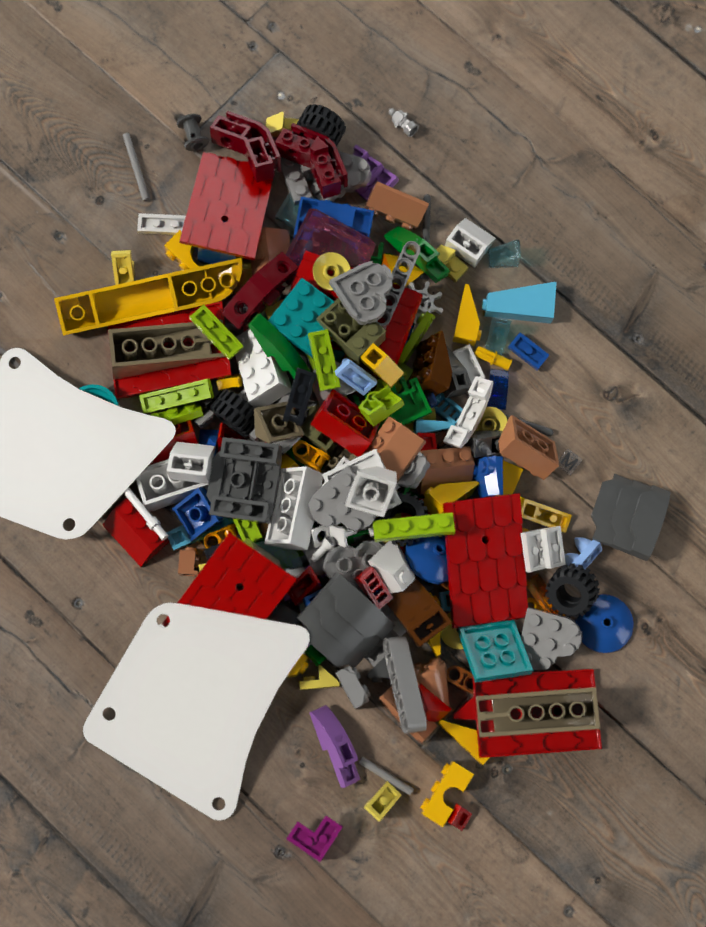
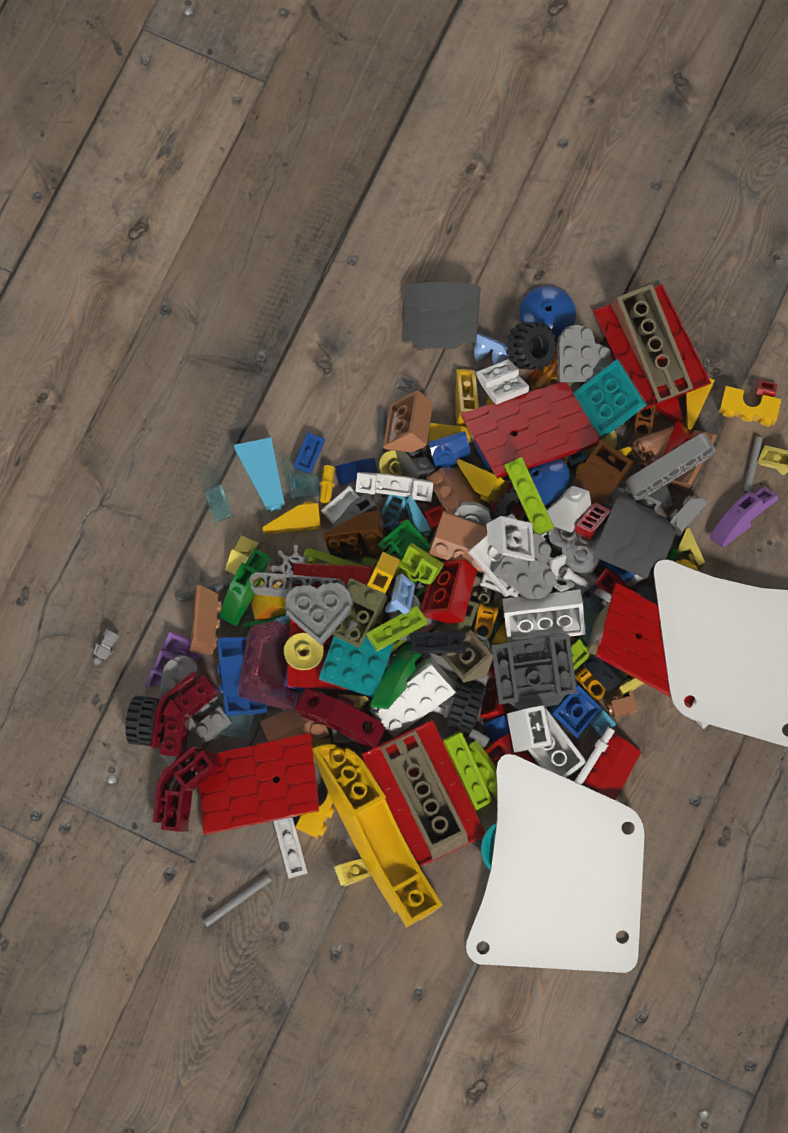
camera: 100 degrees left, 0 degrees up
(190, 125) = (181, 854): dark grey hose -> none
(216, 332) = (397, 746): lime plate -> none
(234, 380) = (436, 716): yellow piece -> none
(278, 122) = (147, 765): light yellow slope -> none
(469, 242) = (215, 540): white slope -> none

